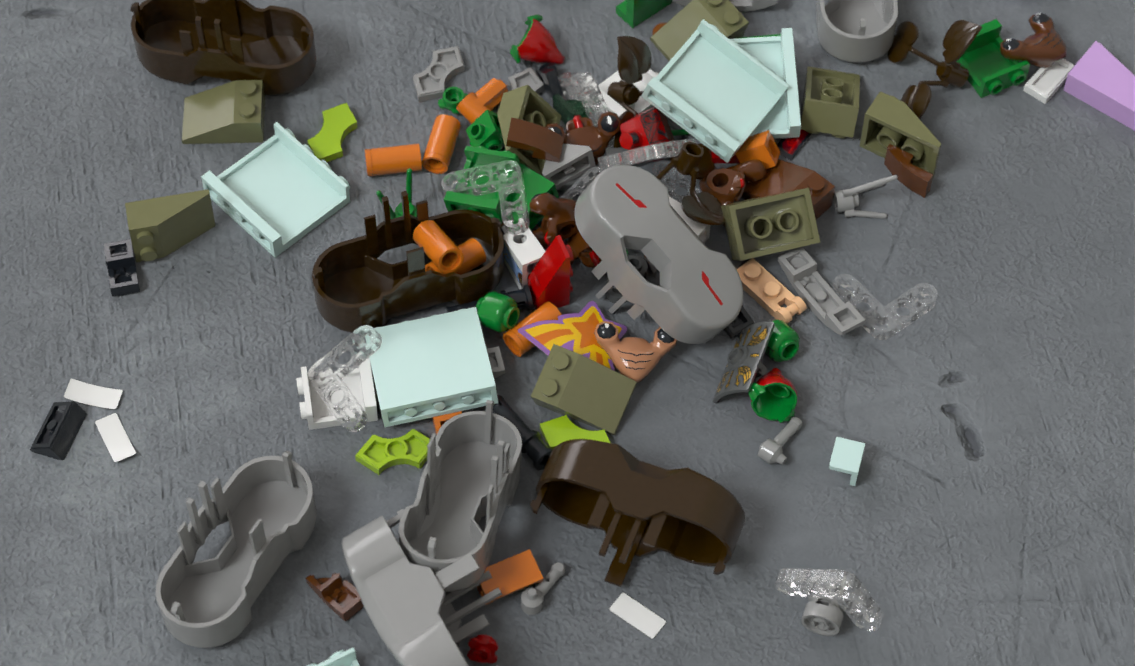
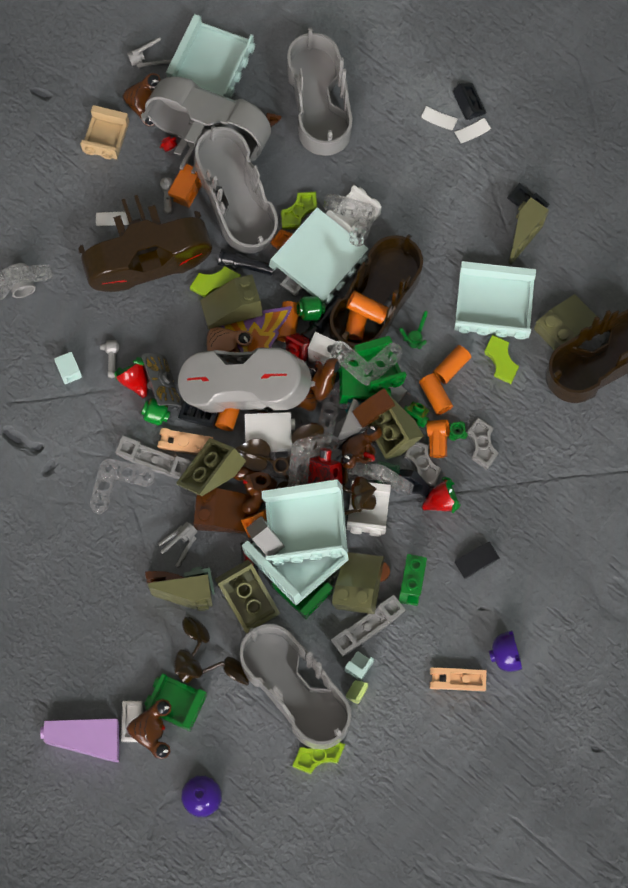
camera: 140 degrees right, 15 degrees up
(770, 114) = (265, 537): none -> light grey slope
(867, 151) = (198, 571): none -> sand green bracket

